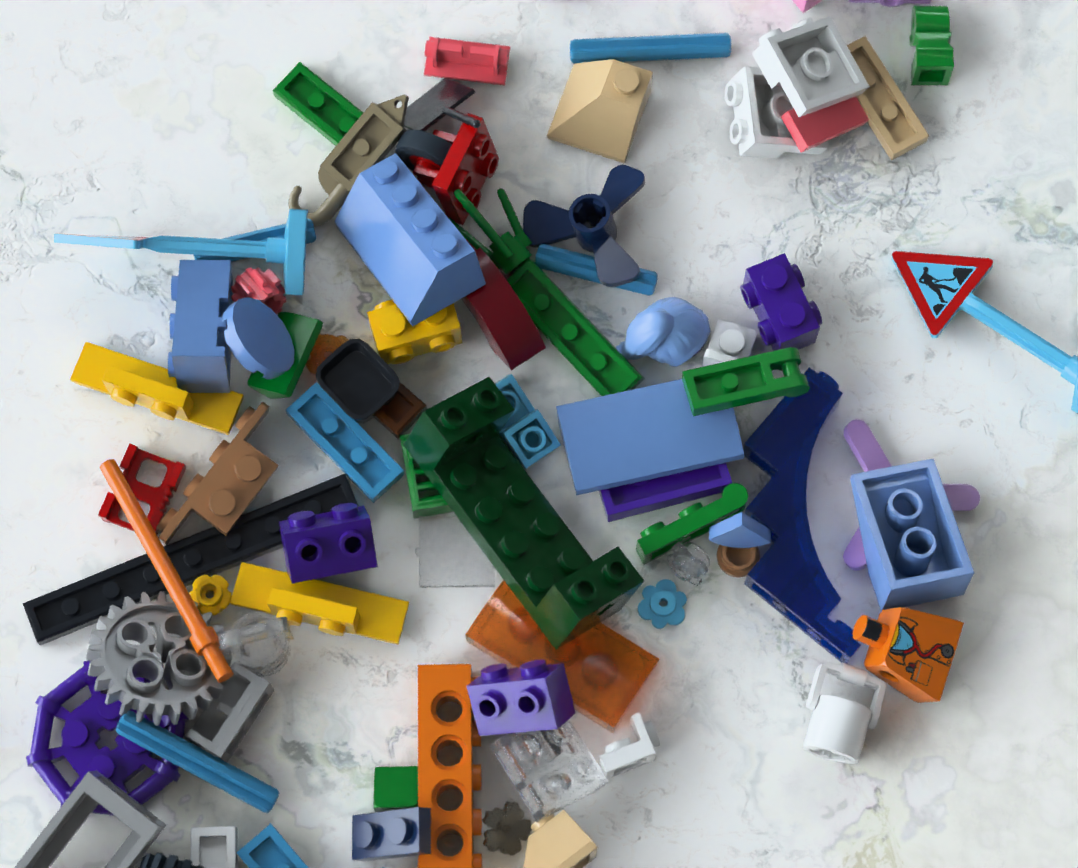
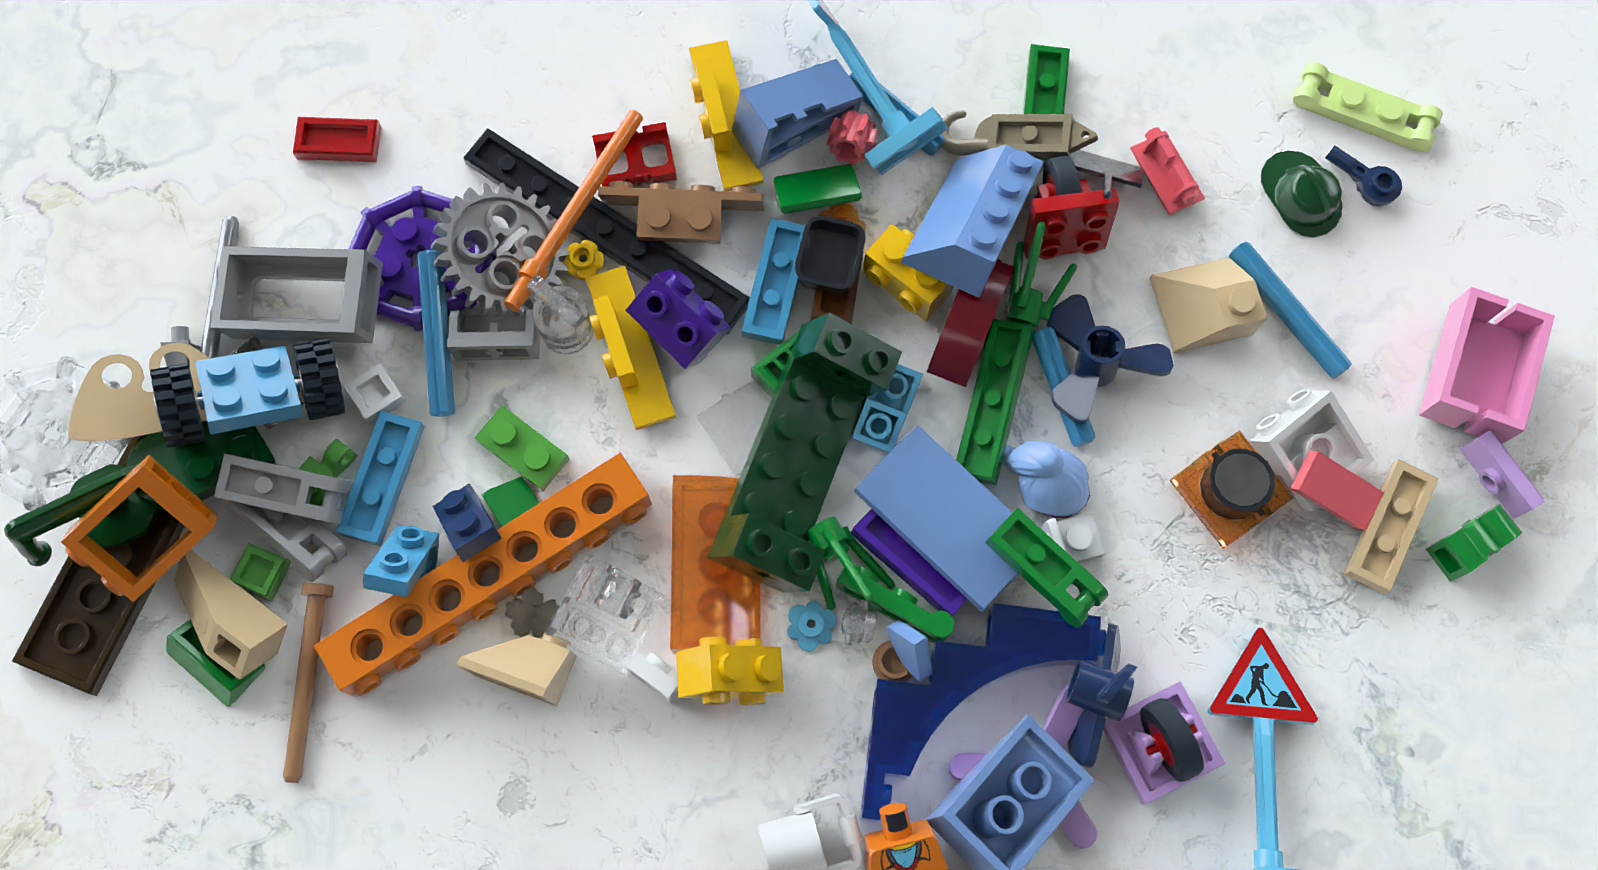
camera: 55 degrees right, 0 degrees up
(258, 338) = (808, 152): medium blue tile -> none
(349, 752) = (522, 448): none -> bright green plate
(521, 698) = (642, 554): dark purple brick -> none
(609, 535) = (835, 540): none -> green plant
(666, 690) = (729, 671): none -> yellow brick
(769, 194) = (1233, 486): none -> piece
(780, 304) = (1147, 547): dark purple brick -> none
(810, 65) = (1374, 445): white plate -> none
(871, 409) = (1101, 694): none -> dark blue piece
(935, 389) = (1162, 743): none -> lavender plate

